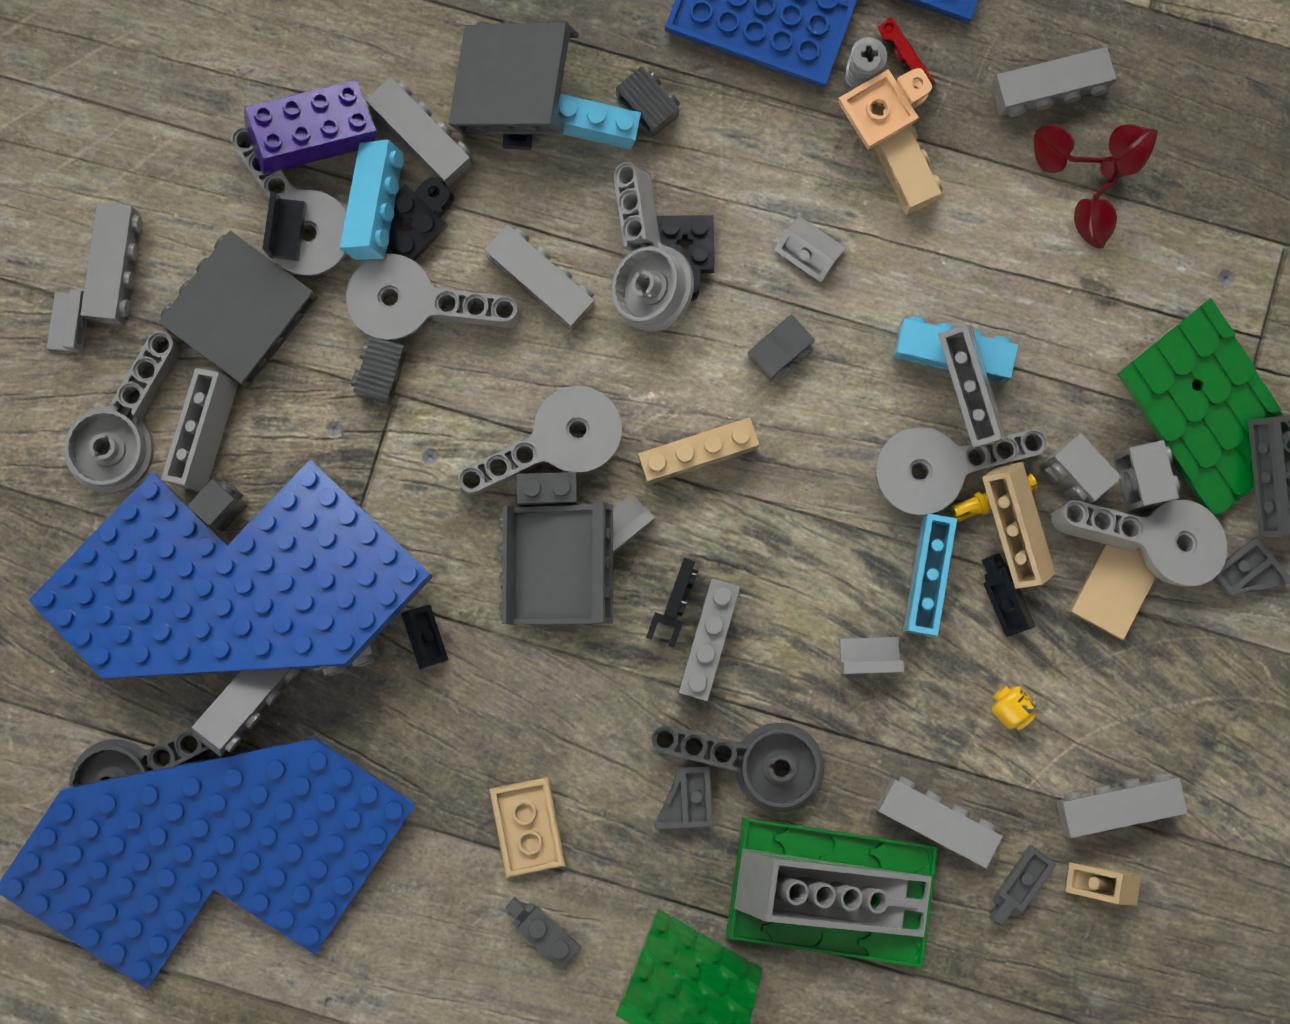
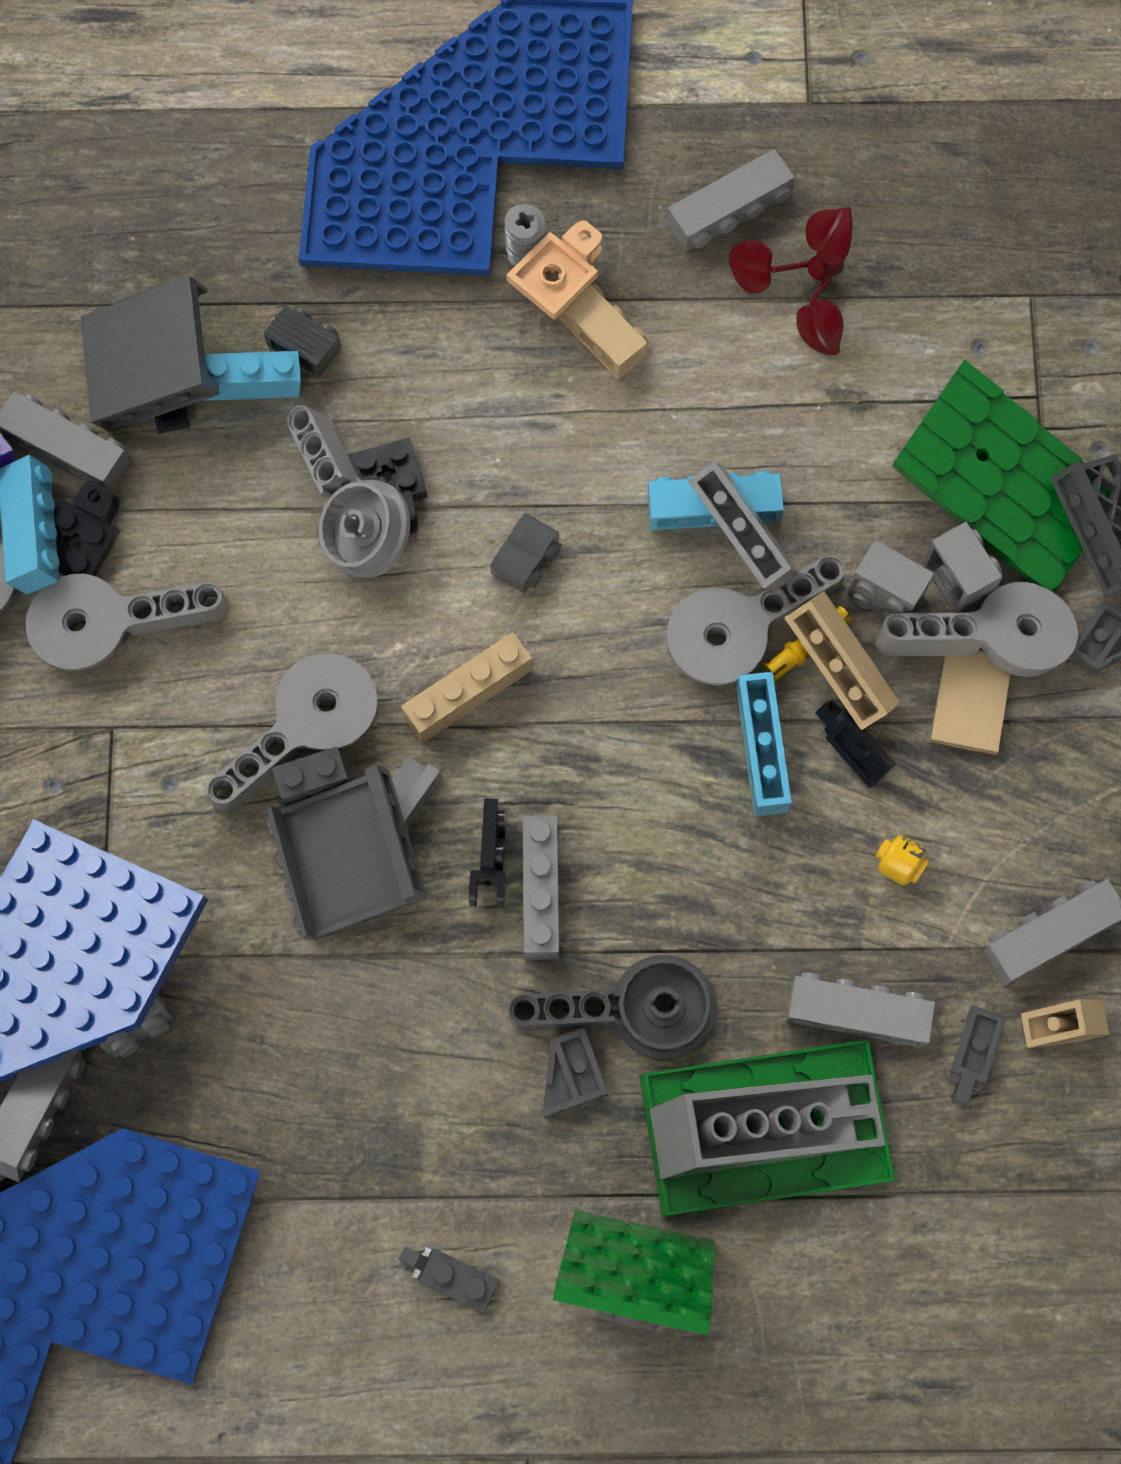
camera: 15 degrees left, 10 degrees down
(379, 370) = (85, 705): dark grey brick -> none
(424, 636) = (218, 981): black plate -> none
(527, 827) = (397, 1161): tan tile -> none
(539, 277) = (238, 555): light grey brick -> none
(809, 248) = (524, 442): light grey panel -> none
(870, 655) = (727, 854): light grey panel -> none
(904, 51) = (562, 213): red hinge -> none

